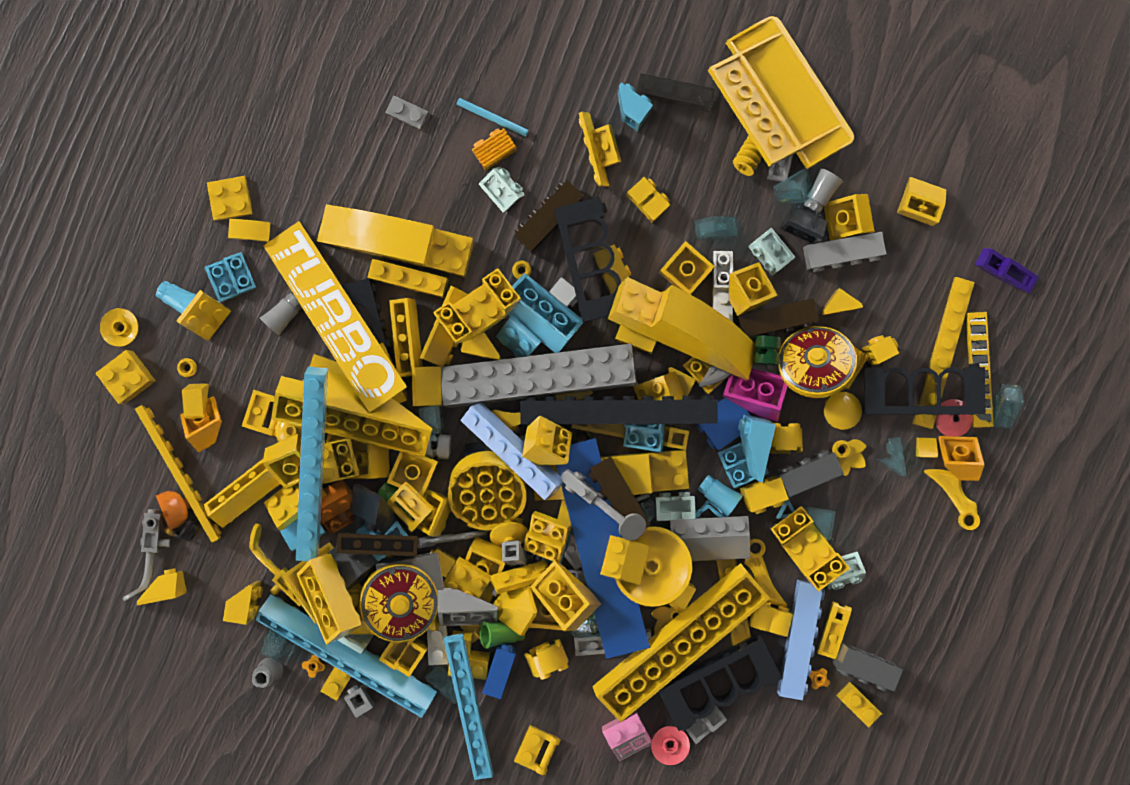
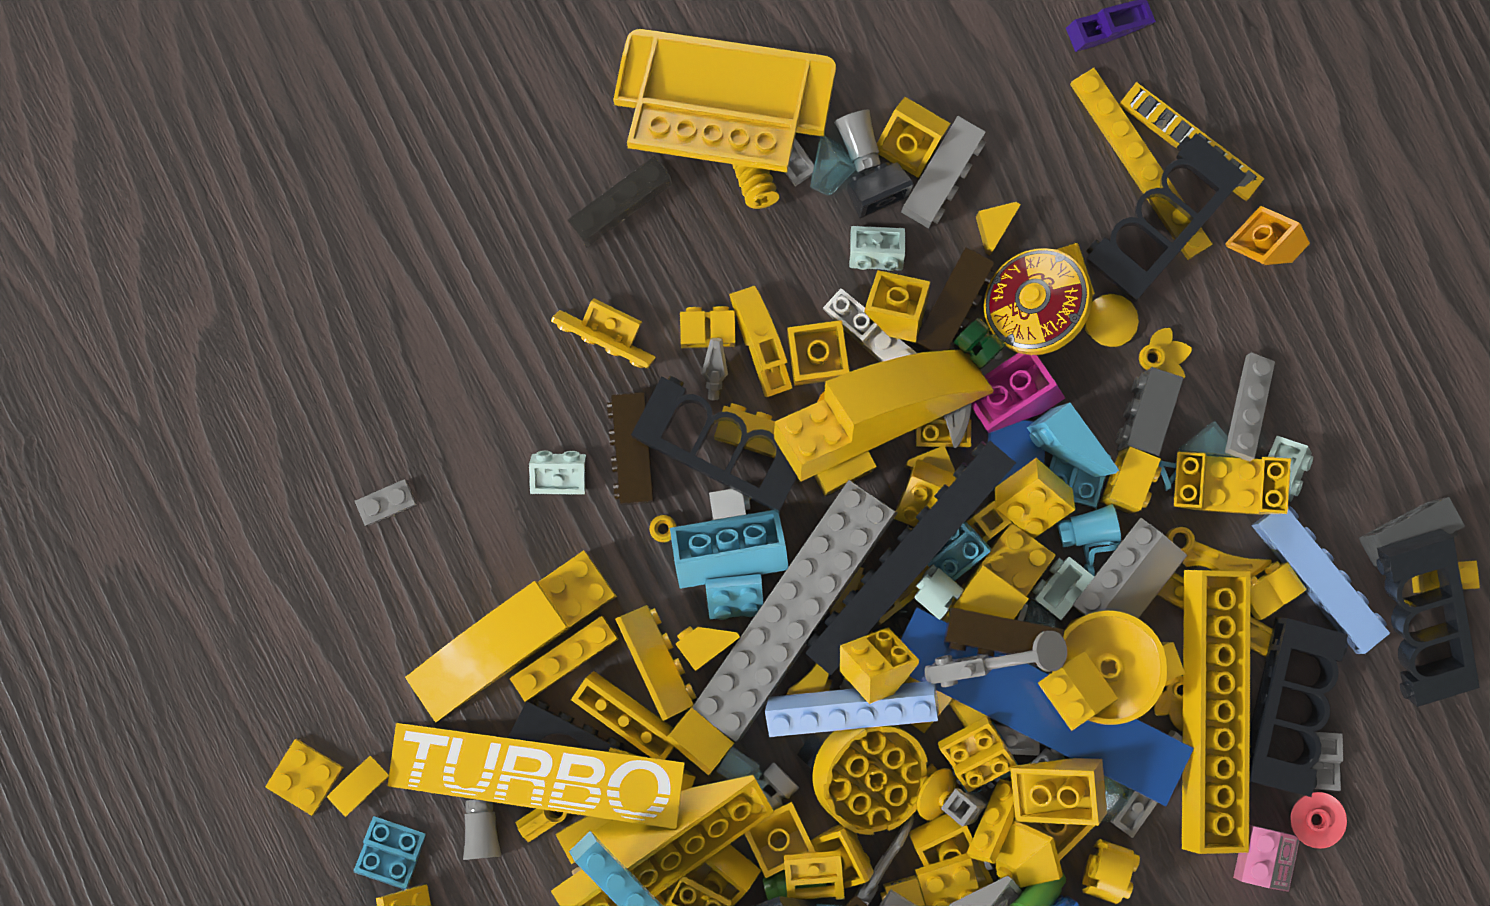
camera: 50 degrees left, 5 degrees down
(311, 339) = (537, 823): none -> yellow piece
(479, 308) = (667, 609): yellow slope -> none
(492, 117) = (472, 416): medium azure bar -> none
(494, 149) = (508, 444): light orange brick -> none
(613, 442) = (937, 591): none -> light aqua cylinder
(630, 222) = (714, 368): none -> light grey piece
(633, 107) = (595, 258): medium azure slope -> none
(667, 233) = (762, 340): none -> yellow slope
(709, 451) = (1034, 498): none -> yellow brick
(716, 227) = (800, 283): clear light blue slope -> none
(787, 439) = (1093, 403): yellow brick -> none
(819, 683) = (1372, 596): light orange plate -> none
(834, 630) = (1341, 534): yellow plate -> none
(842, 673) = (1399, 564): none -> black fence
(860, 524) = (1250, 407): none -> light grey plate
(880, 349) = (1082, 224): yellow brick -> none
(896, 461) = (1214, 311): clear light blue slope -> none
(922, 201) = (963, 47): yellow slope -> none
(926, 447) = (1227, 267): yellow slope -> none
(949, 427) = (1220, 225): coral dish -> none
(953, 488) = (1292, 276): yellow piece -> none
(1007, 405) = (1254, 145): clear light blue slope -> none

